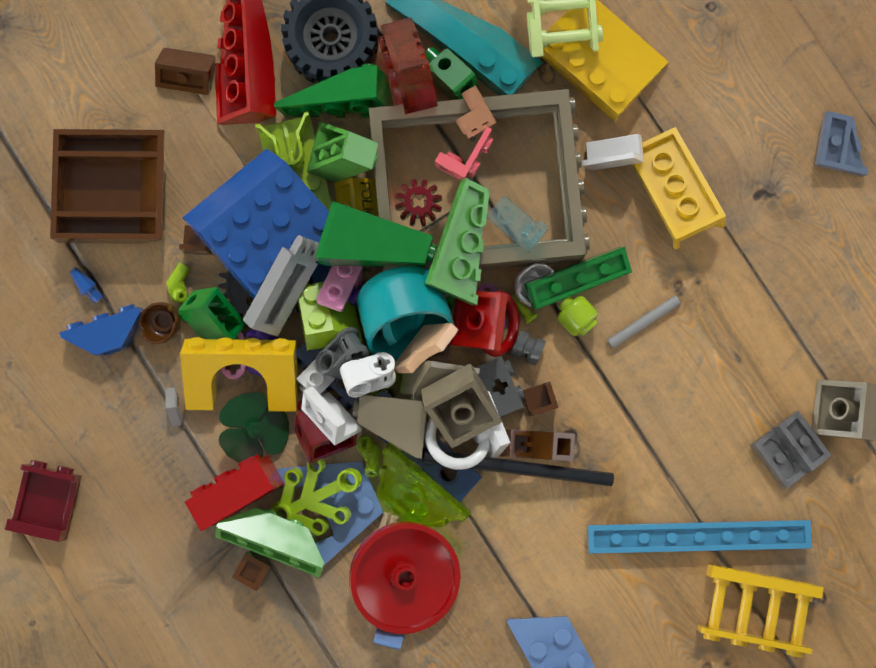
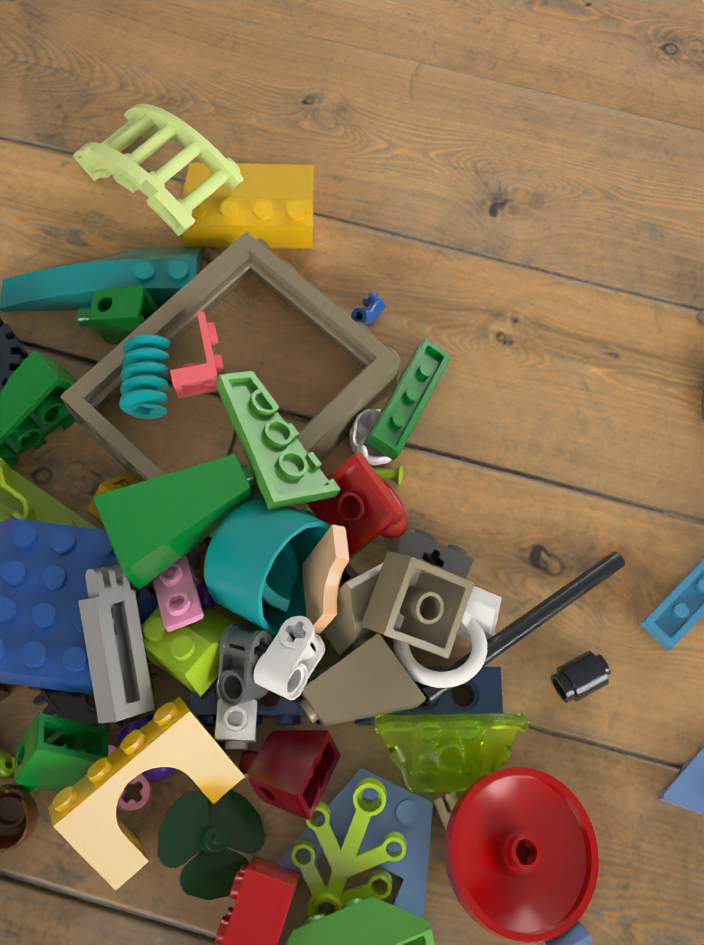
camera: 50 degrees left, 15 degrees down
(171, 407) = (97, 903): light grey tile -> none
(329, 416) = (285, 746): white panel -> none
(340, 153) = (68, 463): bright green wedge -> none
(371, 454) = (364, 750): lime arm -> none
(409, 66) = (71, 327): clear red wedge -> none
(418, 192) = (182, 430): dark red gear -> none
(424, 140) = (144, 376): none -> teal piece
(478, 117) = (180, 319): nougat piece -> none
(517, 224) = (311, 381): clear light blue bracket -> none
(524, 522) = (581, 676): none -> black brick
(528, 347) = (423, 502): dark grey wheel -> none
(540, 399) = (482, 539): reddish brown panel -> none
(540, 445) = (527, 582): reddish brown brick -> none
(577, 315) = (441, 433): lime head -> none
(605, 201) = (374, 307): none -> blue arm
(614, 152) = (339, 265): white panel -> none
(643, 322) = (503, 392): light grey bar -> none
(678, 187) = (421, 249): yellow plate -> none
(839, 145) = (520, 118): sand blue wing -> none

